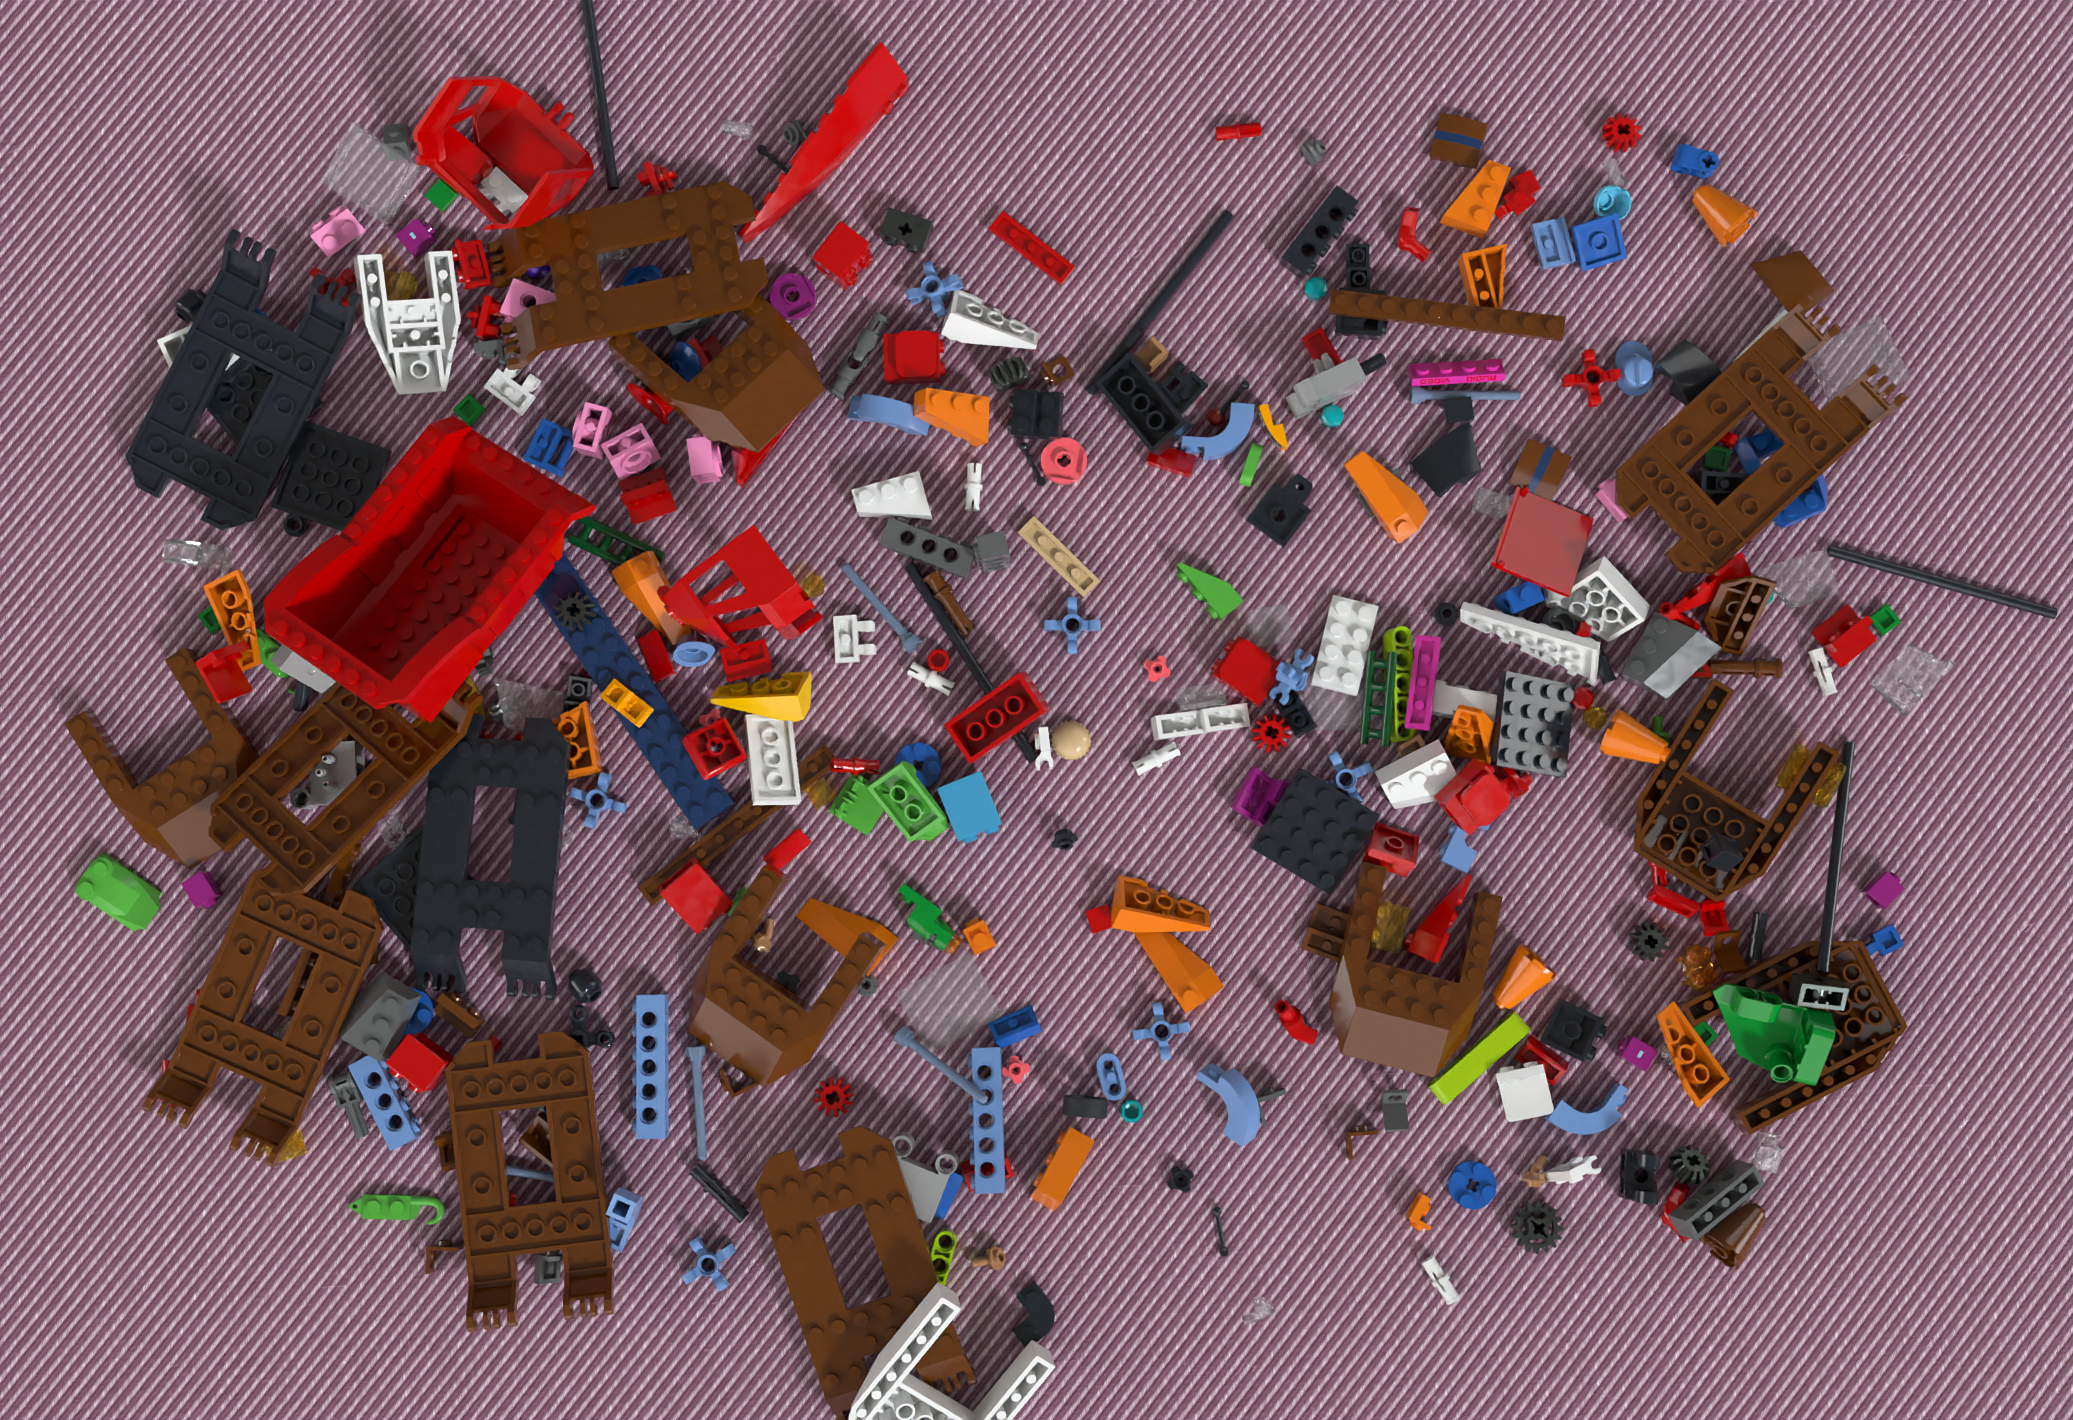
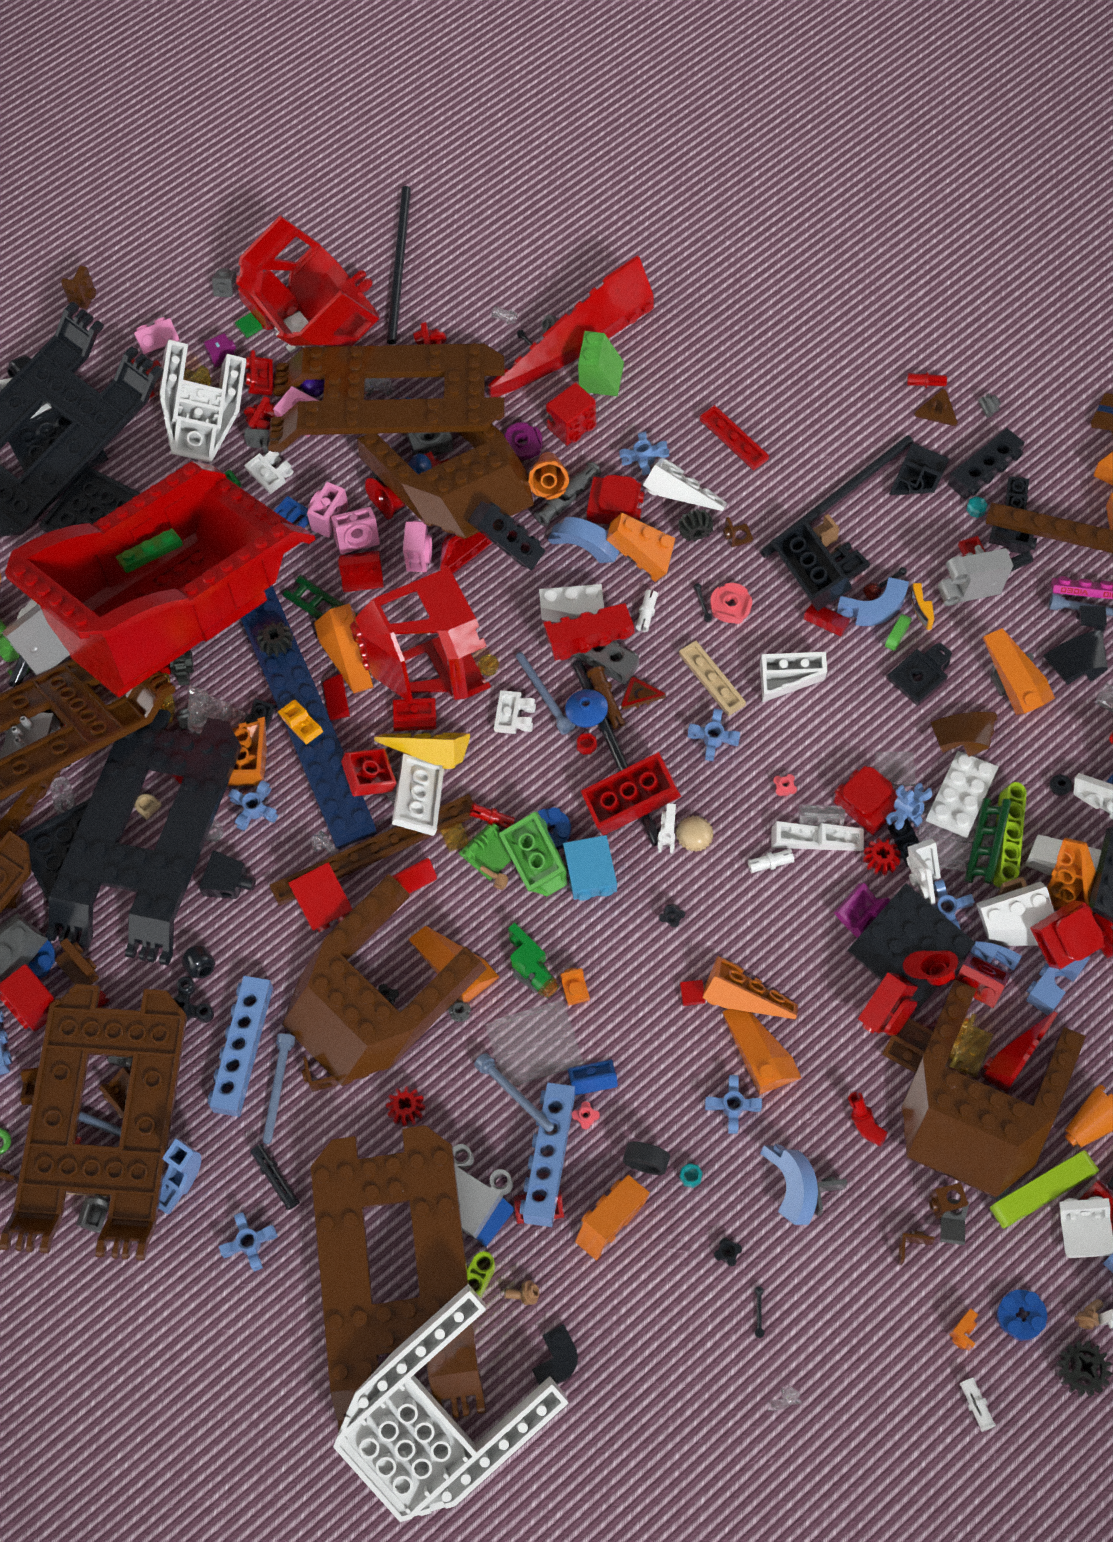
camera: 10 degrees right, 20 degrees down
(232, 187) = (80, 288): none -> reddish brown bracket
(370, 174) = (196, 299): clear piece -> none
(411, 545) = (149, 550): none -> green plate
(484, 819) = (147, 805): none -> tan tile
(589, 887) = (225, 877): none -> black torso
(693, 650) = (369, 696): medium blue piece -> none
(762, 941) = (371, 952): medium nougat plate -> none
(802, 436) = (483, 521): none -> black brick
(832, 342) = (548, 477): none -> orange cone
(863, 185) = (599, 365): none -> bright green slope
(878, 834) = (500, 879): none -> medium nougat hand
(897, 222) = (629, 407): pearl dark grey brick -> none
(917, 536) = (588, 631): none -> red wedge
(931, 678) = (576, 758): white pin -> none
(936, 631) = (586, 715): none -> blue dish
(984, 592) = (639, 693): none -> piece
(992, 552) = (653, 652): dark grey brick -> none
(1036, 414) = (713, 561): black plate -> none
(1111, 1076) = (677, 1139): medium blue plate -> none
(1141, 538) = (790, 672): none -> white wedge
(1216, 593) = (849, 729): bright green slope -> none
(1246, 256) = (919, 472): none -> black slope
(1256, 166) = (938, 409): none -> reddish brown piece
(1302, 904) = (889, 1005): none -> red brick
(1314, 739) = (924, 868): none -> white bracket
(1332, 416) = (977, 607): teal tile -> none
(1338, 573) = (966, 729): none -> reddish brown slope
(1338, 854) = (933, 966): none -> red piece
(1378, 1094) = (939, 1203): none -> reddish brown bracket
(1396, 819) = (991, 951): none -> medium blue slope
(1407, 232) = (1063, 478): red arm -> none
(1423, 683) = (1032, 832): dark pink plate -> none

